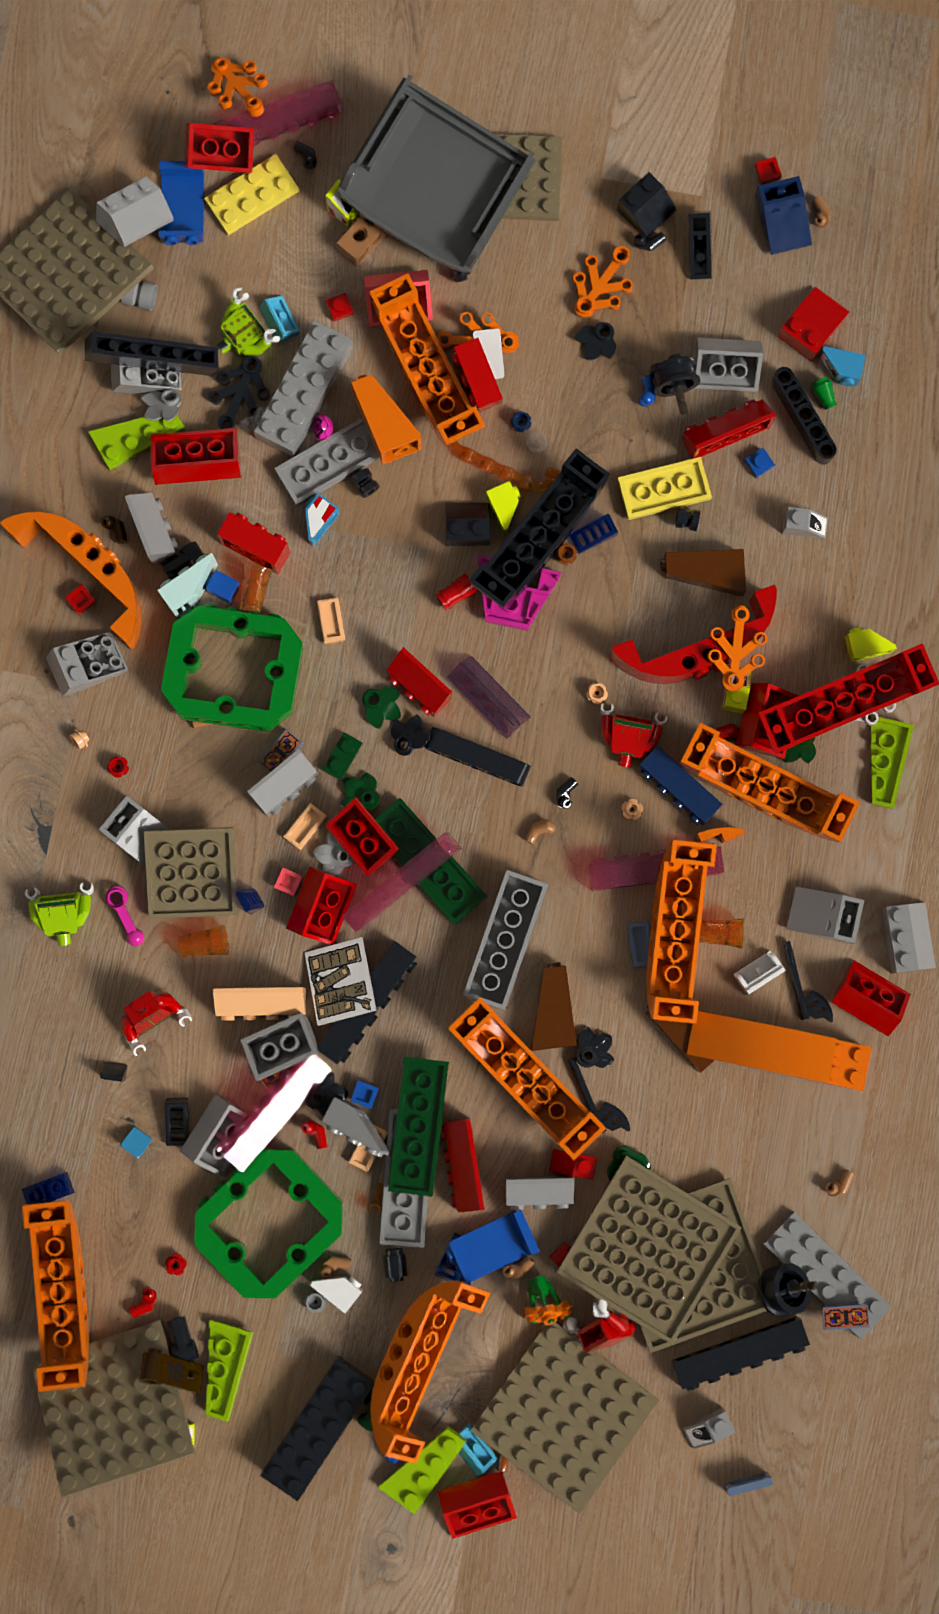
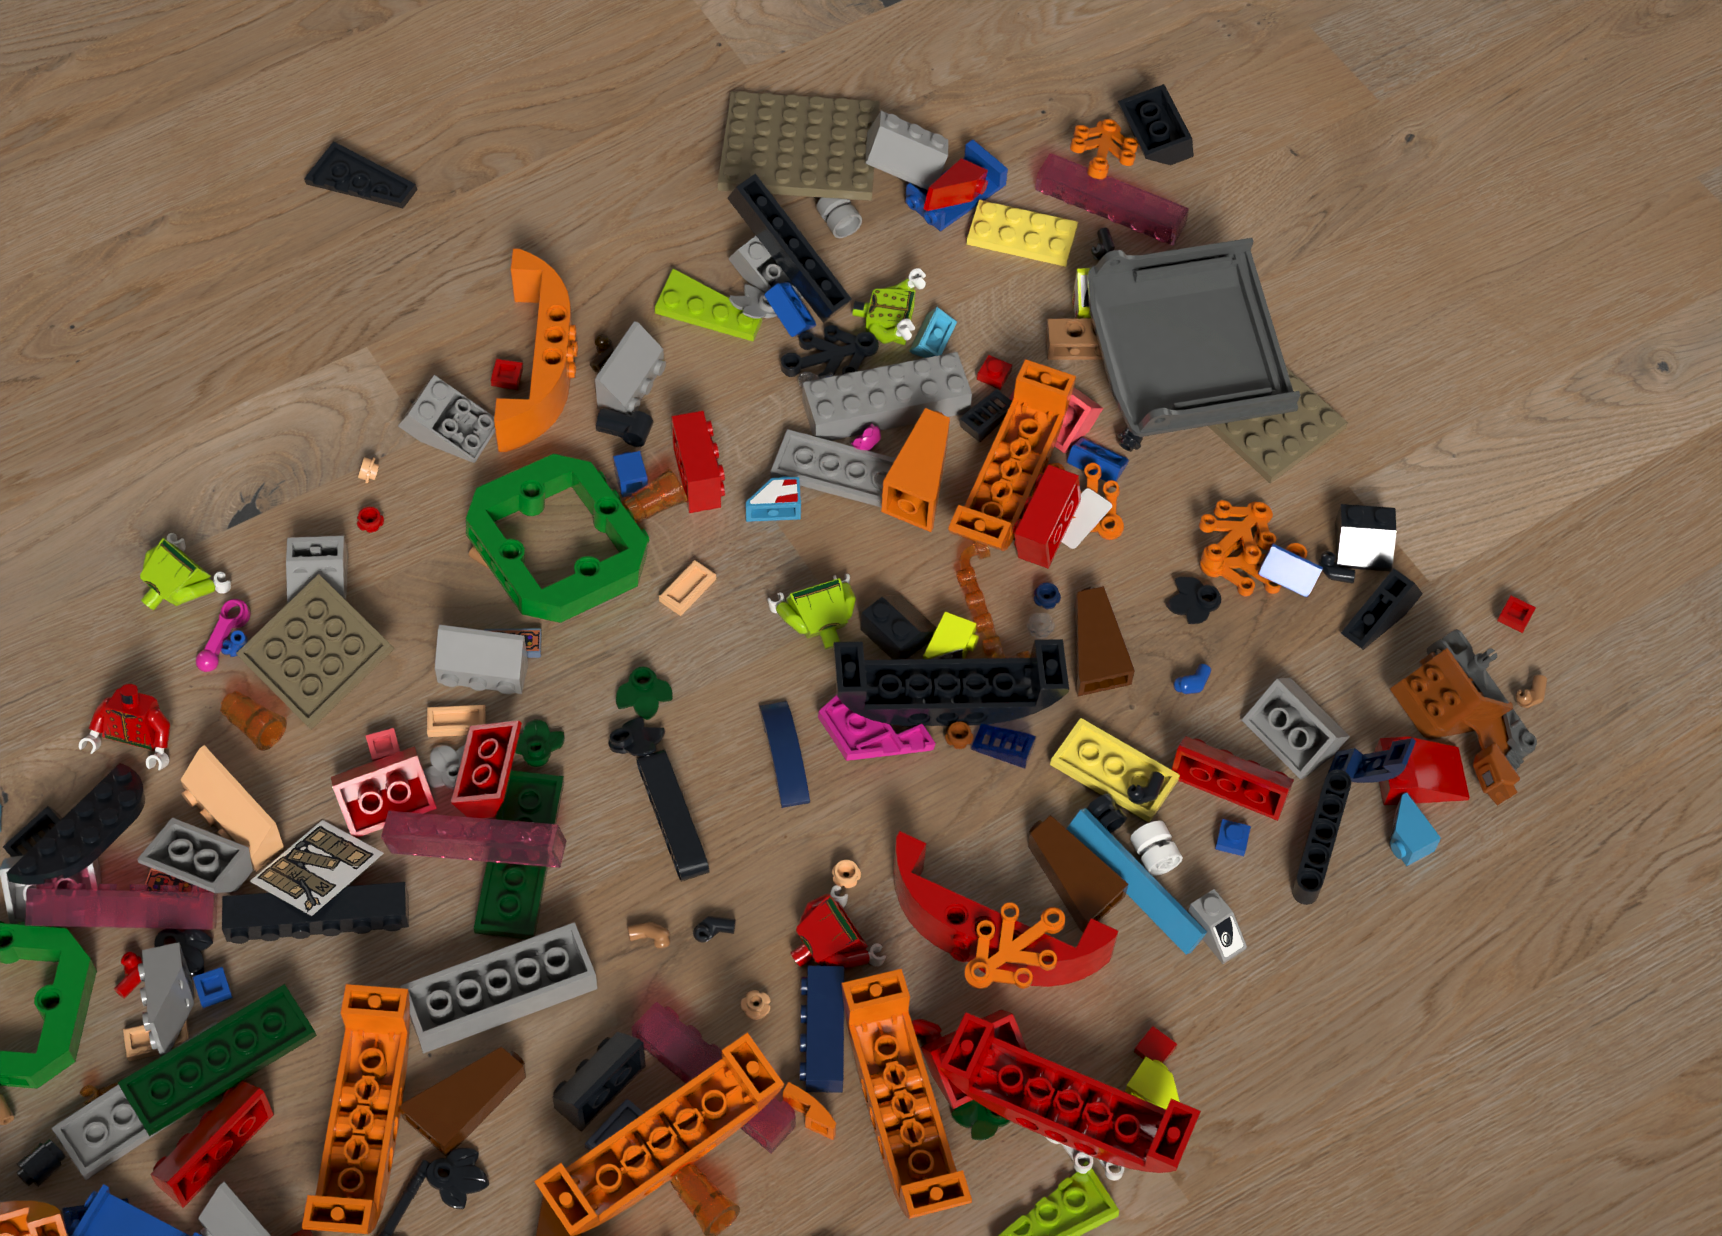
camera: 50 degrees right, 25 degrees down
(114, 1071) = (45, 742): black slope -> none
(142, 912) = (232, 646): none -> blue arm
(186, 388) = (790, 309): none -> blue slope
(187, 589) = (602, 437): light aqua slope -> none
(189, 203) = (957, 186): none -> red slope
(195, 456) = (733, 360): red slope -> none
(205, 1093) = (84, 830): none -> black plate
(219, 147) = (1030, 164): red brick -> none
(250, 900) = (330, 722): clear blue slope -> none
(251, 37) = (1157, 126): none -> black slope
(342, 756) = (559, 699): dark green plate -> none
(365, 482) = (849, 514): black wheel -> none
(368, 357) = (980, 432): none -> black slope
(418, 560) = (818, 609): none -> lime torso
(418, 683) = (696, 702): red slope -> none
(454, 304) = (1088, 452): none -> blue slope
(455, 592) = (816, 666): red piece -> none
(488, 696) = (745, 779): clear purple panel -> none
(490, 659) = (785, 754): none -> dark blue slope
(579, 272) = (1255, 514): none -> orange plant
(579, 422) = (1099, 645): none -> reddish brown slope
(605, 930) = (599, 1079): none -> black slope
(630, 270) = (1289, 570): none -> slope
(675, 378) = (1229, 685): black wheel -> none
(698, 486) = (1147, 793): none -> black arm
(733, 512) = (1155, 845): none -> white wheel
(737, 700) = (978, 1001): neon yellow slope -> none
(738, 539) = (1142, 885): none -> dark azure tile
(784, 215) = (1508, 639): dark blue slope -> none
(795, 349) = (1376, 765): none -> dark blue slope
(800, 255) = (1458, 696): none -> dark orange piece
(824, 392) = (1366, 835): green cone -> none
(840, 620) = (1155, 1046): none -> red tile

